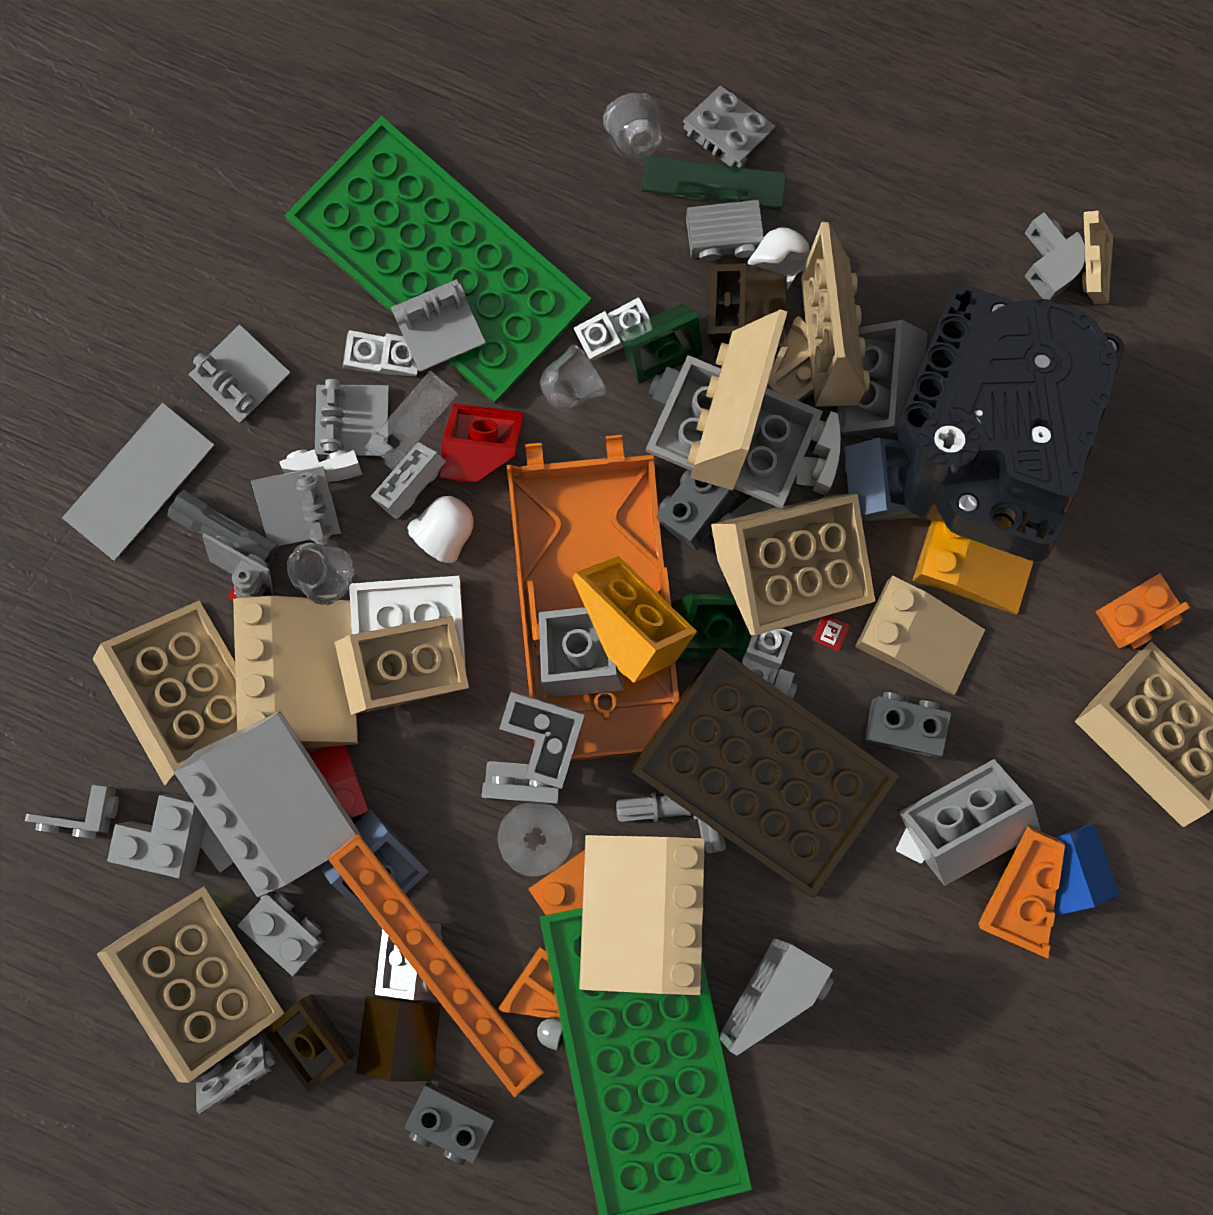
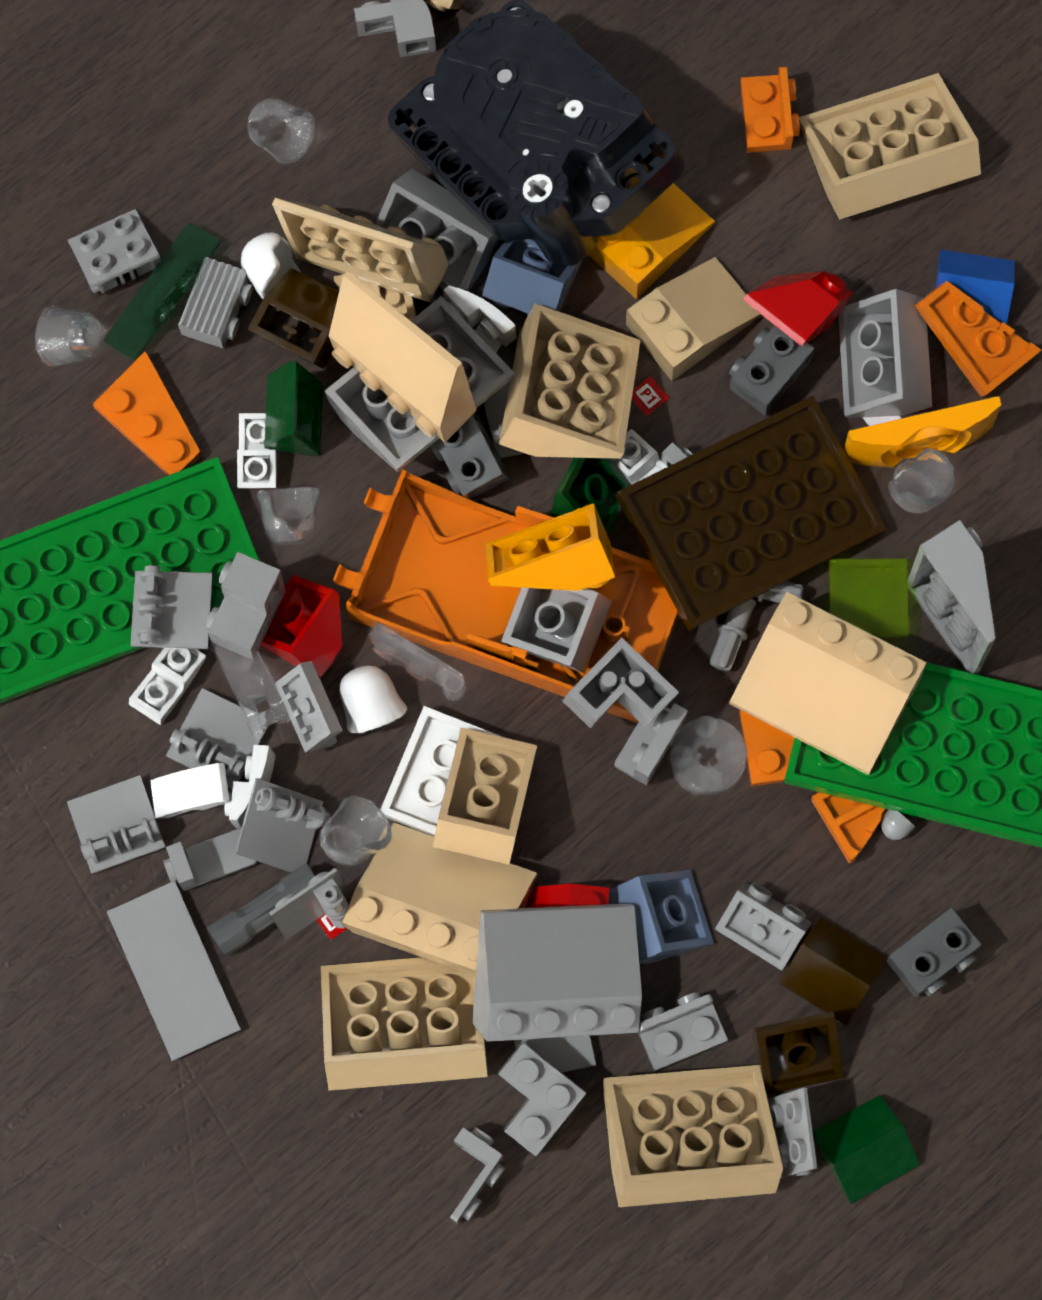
camera: 55 degrees left, 5 degrees down
(237, 456) = (205, 860): none -> light grey bracket
(254, 1140) = (866, 1148): none -> dark green slope
(292, 418) = (189, 790): none -> white slope
(435, 965) = (782, 895): orange tile -> none
(465, 384) = (249, 605): none -> light grey brick
(495, 554) = (419, 662): none -> clear plate
(599, 226) = (148, 417): none -> orange wing
(662, 387) = (340, 433): dark grey plate -> none
(744, 912) = (870, 594): none -> clear neon green plate
(870, 910) = (922, 481): none -> clear hair
(910, 193) = (270, 117): none -> clear hair
(912, 890) = (905, 438): none -> light orange slope
(978, 723) = (801, 303): none -> red slope

